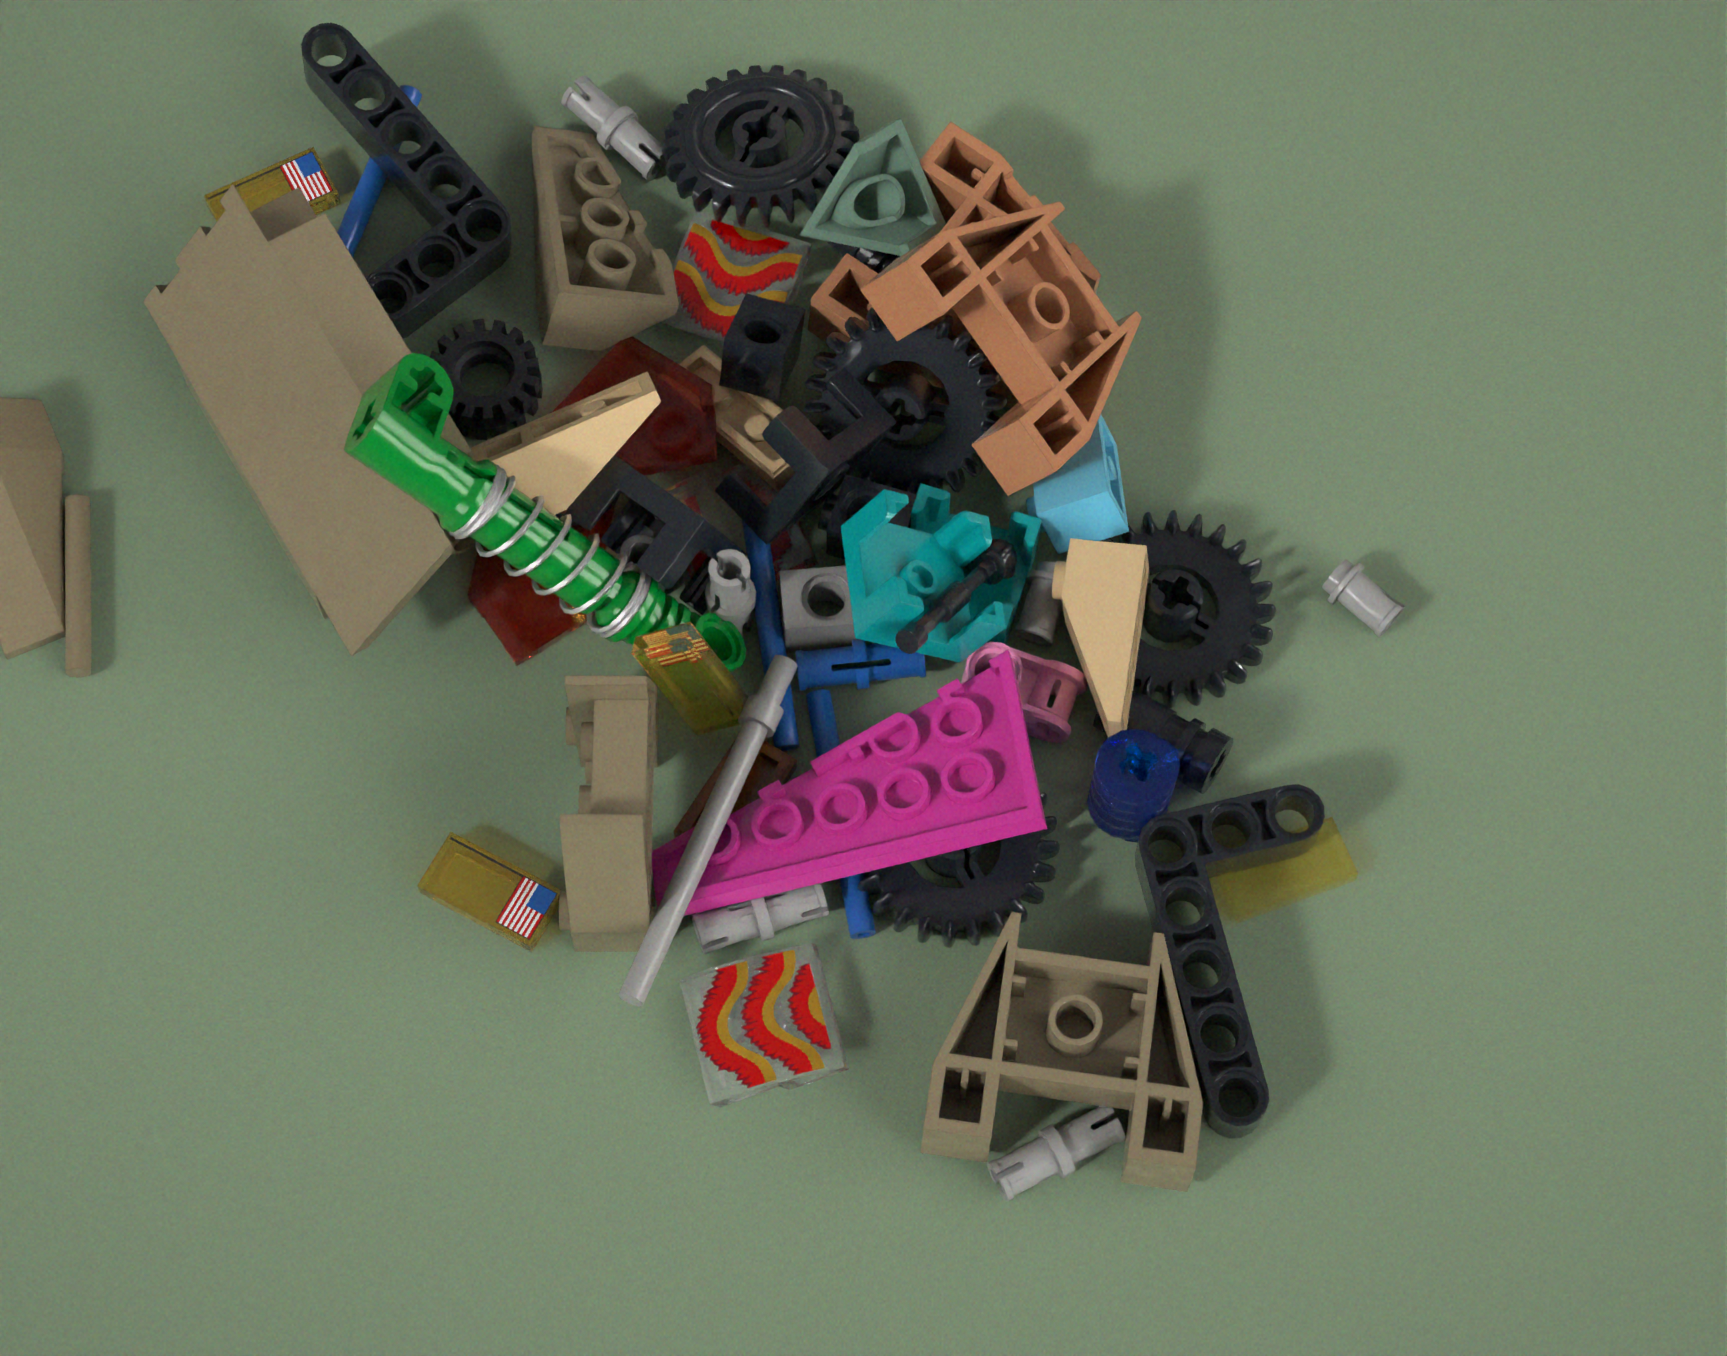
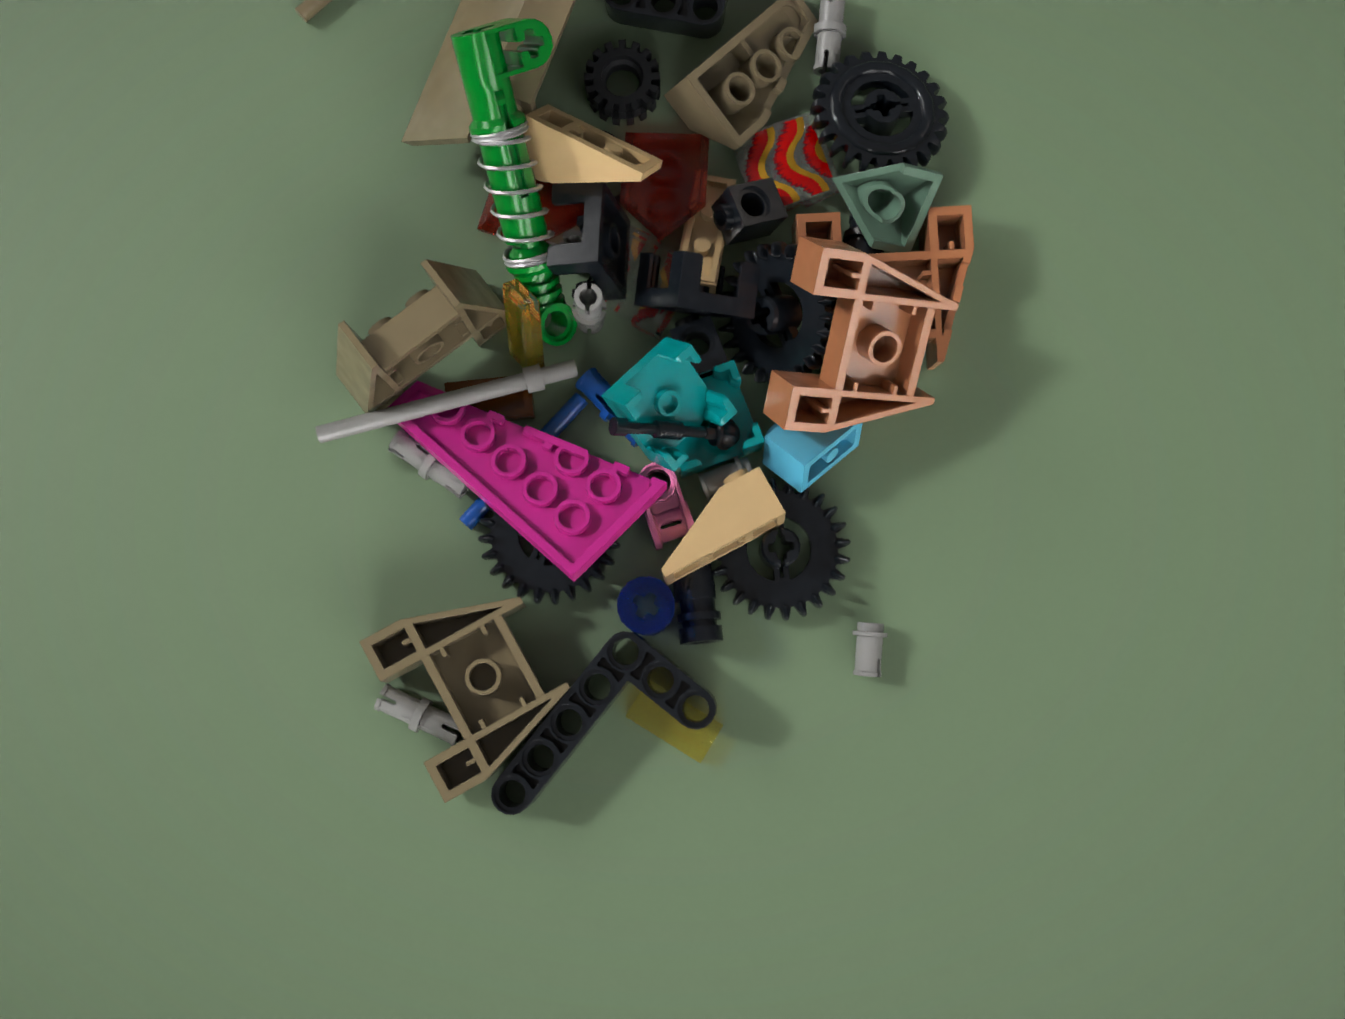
camera: 55 degrees right, 15 degrees up
(490, 891) = (339, 300): clear yellow tile -> none
(763, 1024) = (374, 511): slope -> none
(770, 629) = (592, 349): blue piece -> none
(799, 593) = (615, 348): light grey brick -> none

